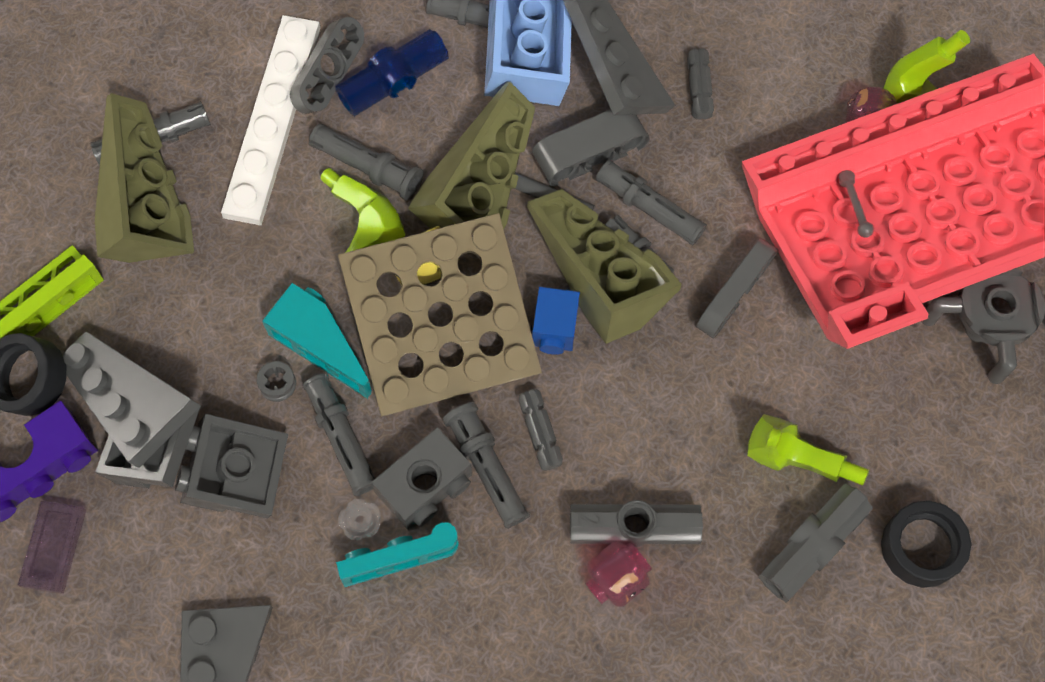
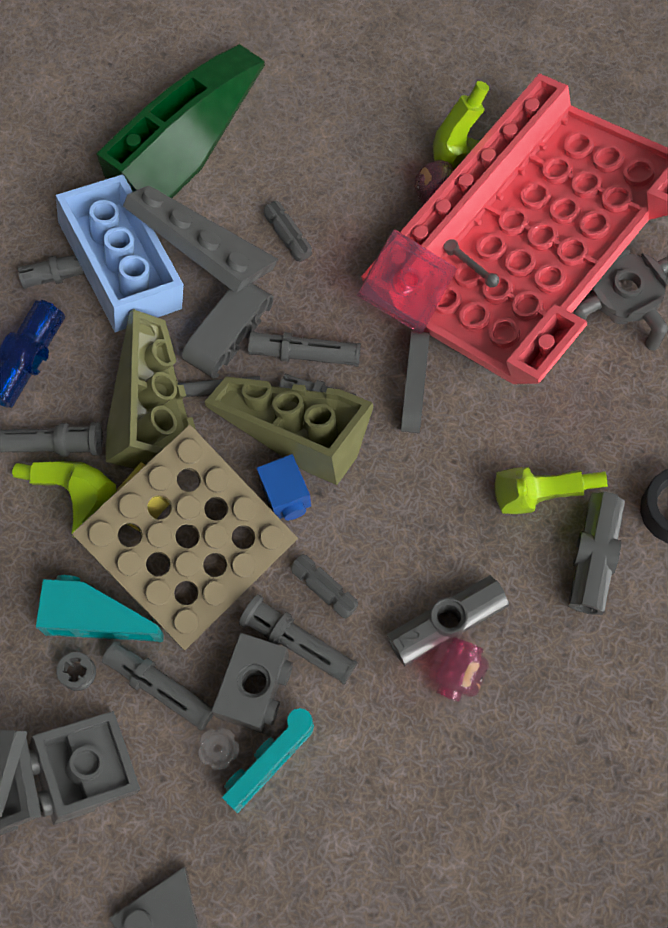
camera: 25 degrees left, 0 degrees up
(781, 188) = (407, 281): none -> clear pink plate

